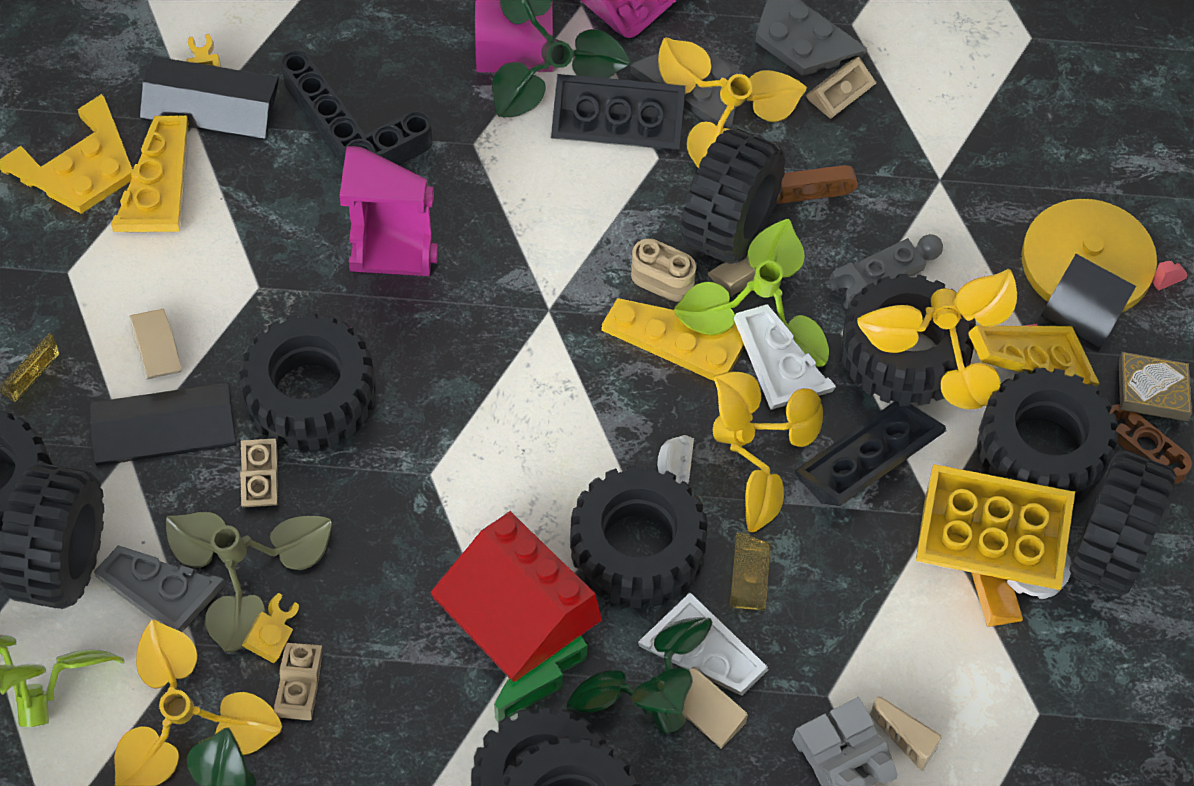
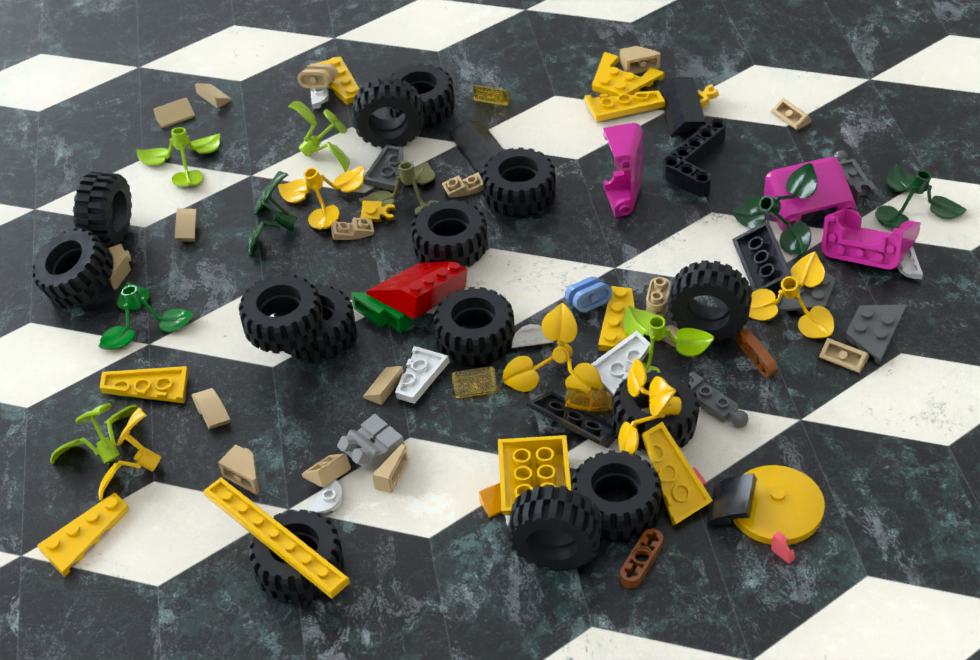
camera: 80 degrees right, 15 degrees down
(49, 120) = (639, 59): none -> tan slope
(155, 343) = (520, 129): tan slope -> none
(394, 480) = (448, 218): none -> black tyre
(599, 350) = (588, 294): none -> medium blue brick
(661, 695) = (375, 359): dark green plant -> none
(835, 424) = (594, 401): none -> clear yellow slope
(1155, 386) = (685, 552): tile -> none

